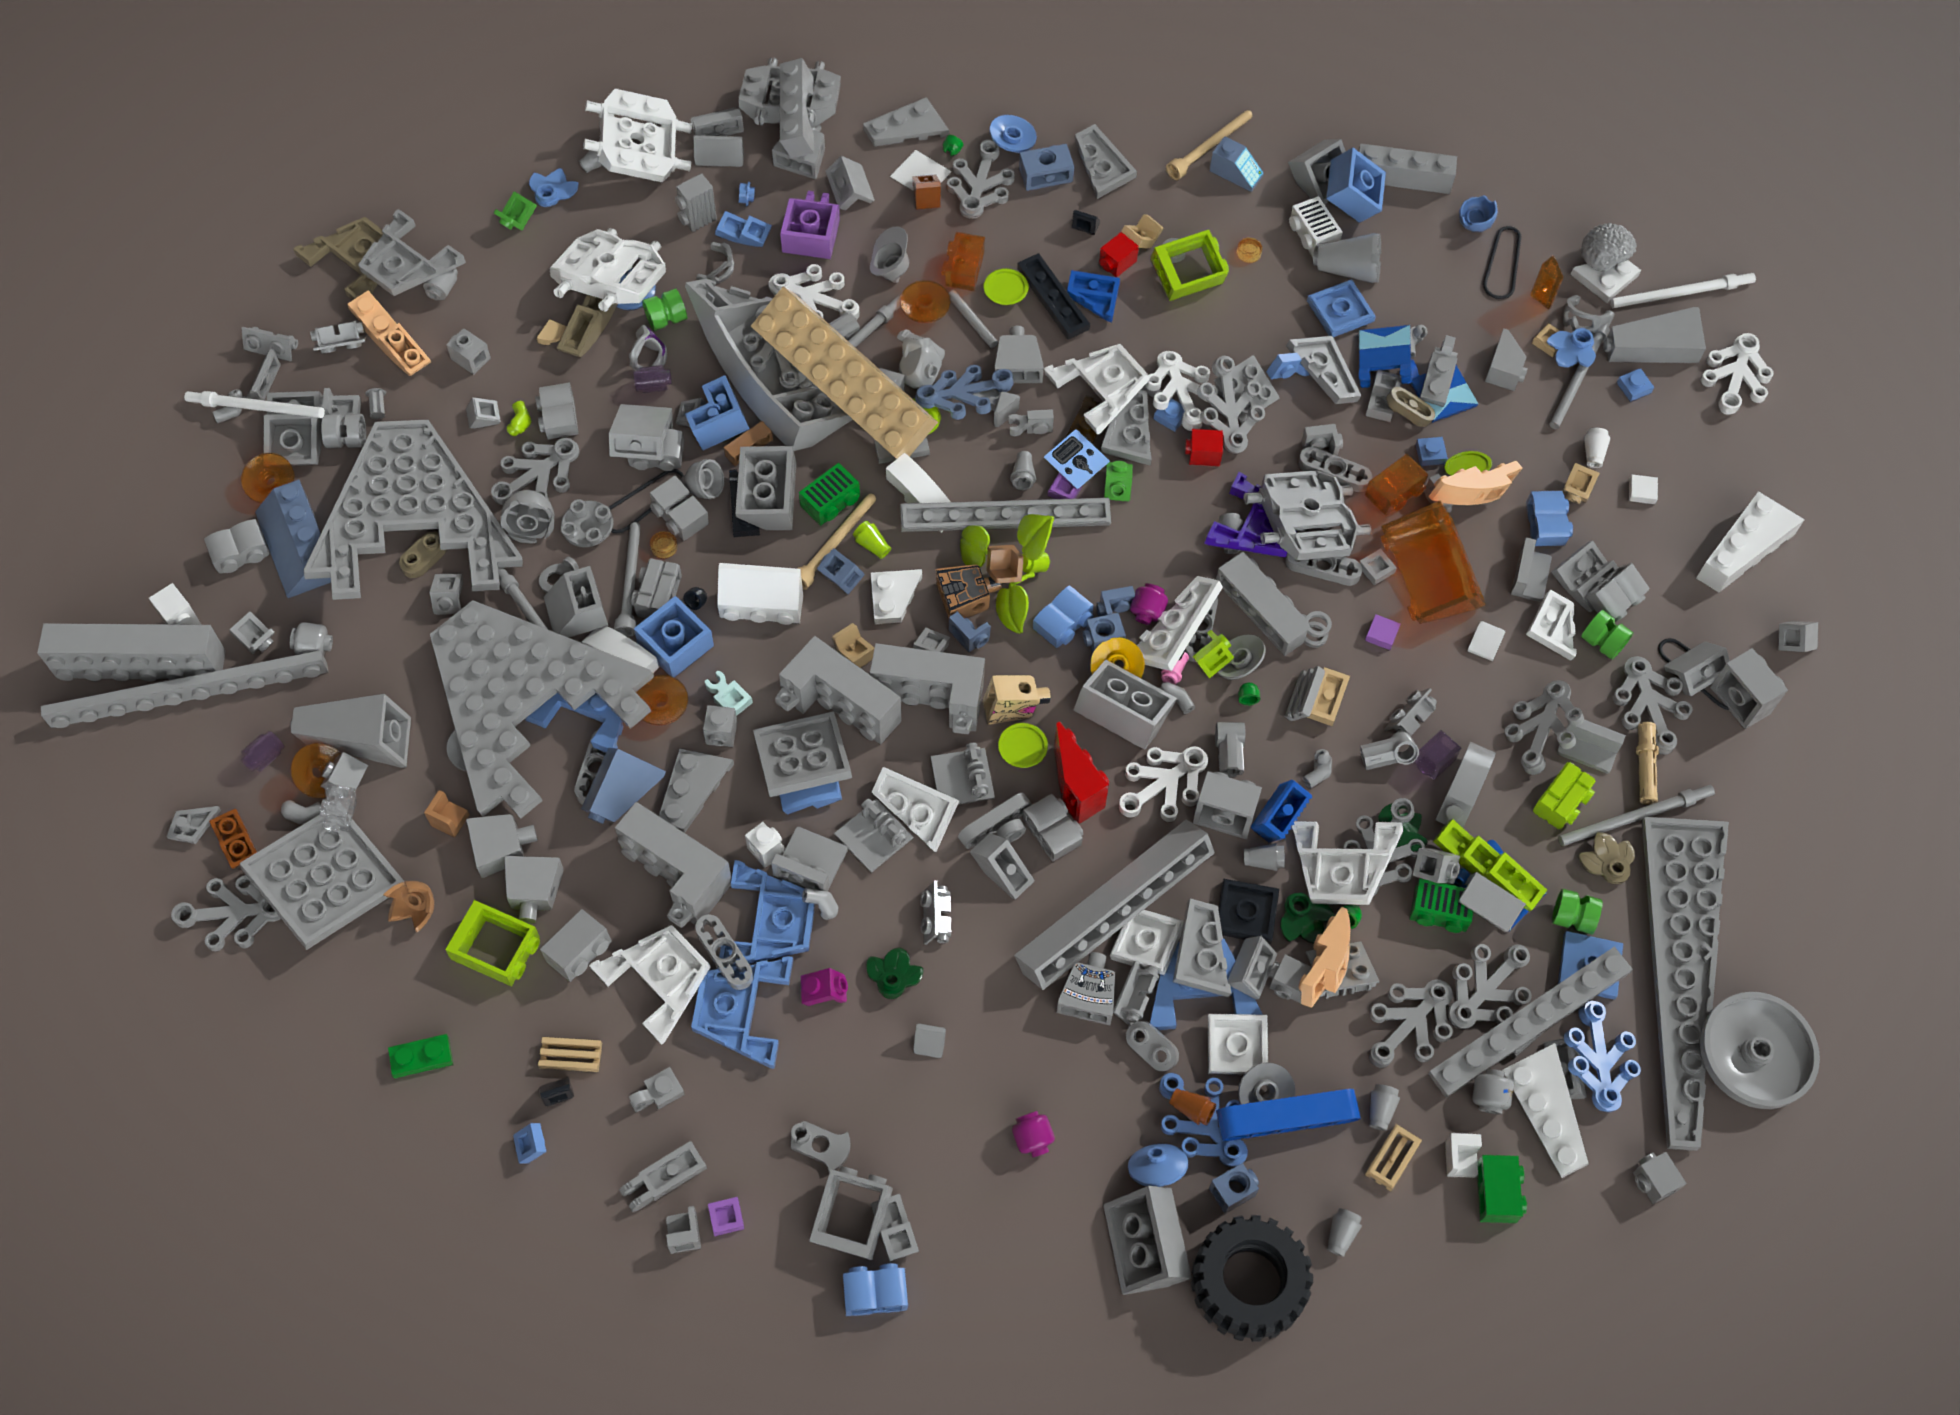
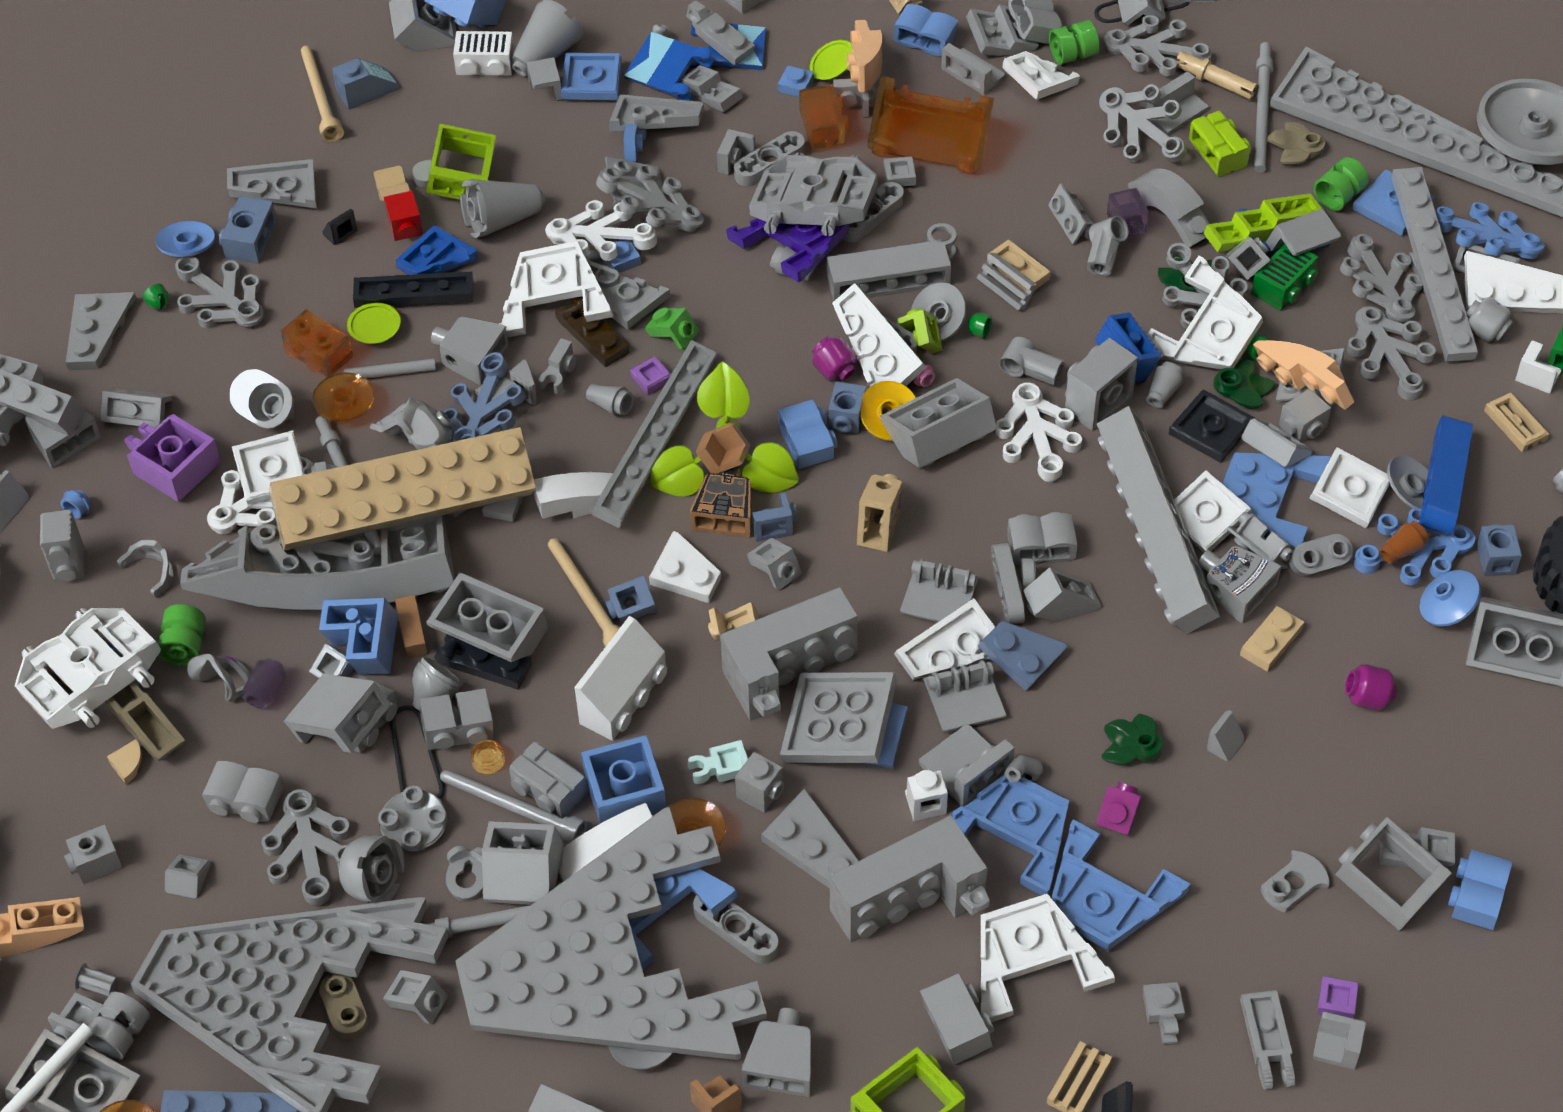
camera: 60 degrees left, 10 degrees down
(520, 421) = (224, 834): lime arm -> none
(532, 884) = (853, 1040): light grey torso -> none
(619, 785) = (782, 903): sand blue slope -> none
(691, 596) = (584, 744): black hinge -> none
(741, 964) = (1029, 888): light grey beam -> none
(742, 231) = (126, 524): medium blue slope -> none
(829, 494) = (529, 571): green brick -> none
(832, 288) = (265, 462): none -> white plate
(871, 539) = (607, 560): lime cone -> none
(918, 165) = (167, 342): white sticker -> none
(927, 191) = (199, 339): dark orange slope -> none
(932, 857) = (1021, 652): none -> sand blue wing
(933, 680) = (833, 550): light grey hinge -> none
(934, 902) = (1084, 679): light grey hinge -> none
(1023, 745) = (934, 526): lime piece -> none
(1049, 1040) = (1272, 638): none -> tan plate
(1076, 459) = (628, 347): light blue sticker -> none
(1080, 783) = (997, 488): red slope -> none
(1115, 600) = (816, 386): sand blue bracket -> none
(1164, 309) = (498, 204): none -> light grey cone
(1183, 698) = (948, 376): light grey arm -> none
(1200, 950) = (1248, 471): light grey wing -> none
(1205, 447) = (682, 241): red brick -> none
(1249, 250) = (469, 116): clear orange tile -> none
(1315, 276) = (544, 74): none -> light grey panel
(1321, 771) = (1091, 305): light grey arm -> none
(1382, 632) = (970, 200): medium lavender tile -> none
(1383, 1105) = (1465, 405): light grey cone -> none
(1410, 407) = (741, 71): dark tan plate -> none
(1486, 640) = (1025, 129): white slope -> none

